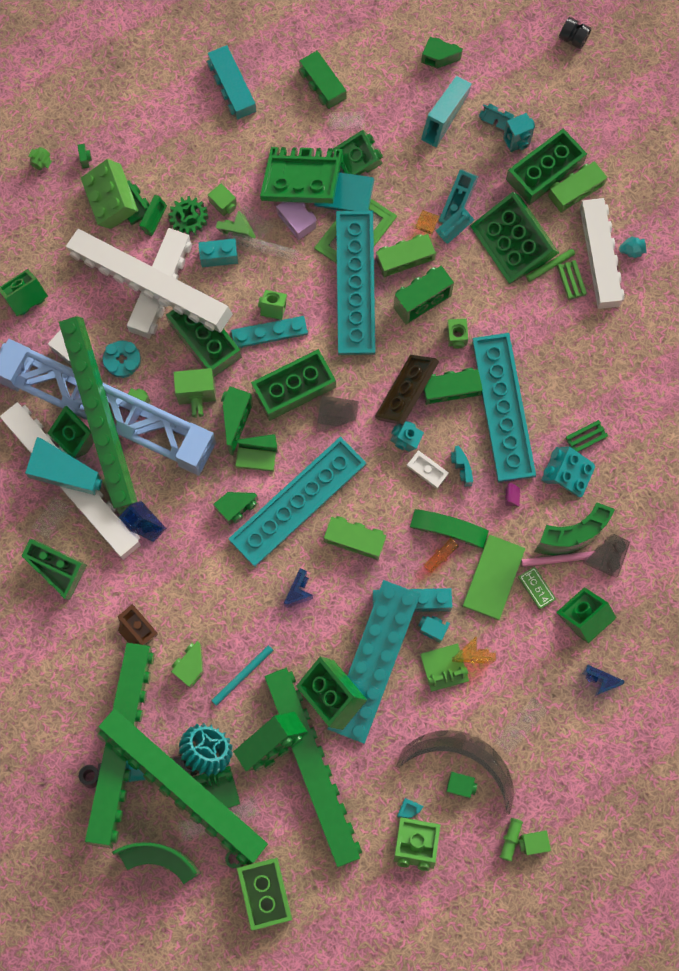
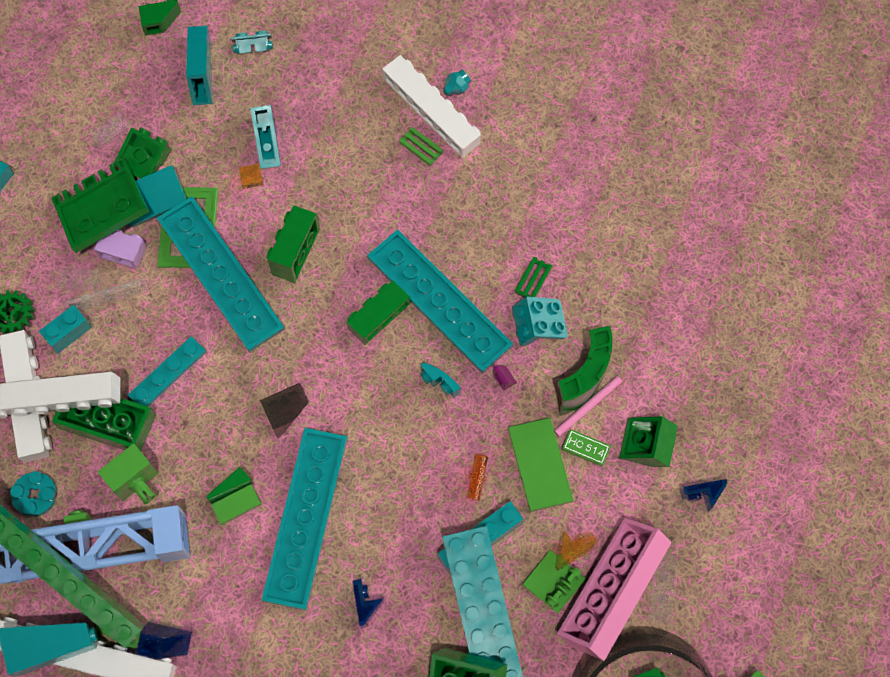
camera: 35 degrees left, 5 degrees down
(71, 434) = (31, 602): green slope -> none
(222, 199) = (35, 276): bright green brick -> none
(234, 504) = (244, 562): green slope -> none
(236, 410) = (184, 466): green slope -> none
(240, 226) = (70, 290): bright green slope -> none
(272, 304) = (153, 344): bright green brick -> none
(293, 384) = (225, 408): green brick -> none
(322, 80) = (60, 106): green brick -> none
(355, 537) = (385, 515): bright green brick -> none
(405, 255) = (251, 218): bright green brick -> none
(406, 389) = (338, 342): dark brown tile -> none
(406, 436) = (368, 386): teal brick -> none
(427, 469) = (409, 404): white plate -> none
(433, 628) = (518, 551): teal brick -> none
(449, 527) = (466, 445): green slope -> none
(455, 225) = (279, 162): teal hinge -> none
(460, 326) = (346, 252): bright green brick -> none
(484, 701) = (614, 588): none -> bright pink brick
(514, 238) = (342, 141): green slope -> none
(519, 132) = (281, 43): teal brick -> none
(546, 166) = (327, 59): green brick -> none
(551, 264) = (392, 145): bright green bar -> none
(577, 186) = (367, 60): bright green brick -> none
(609, 556) = (630, 373): clear smoke wing -> none

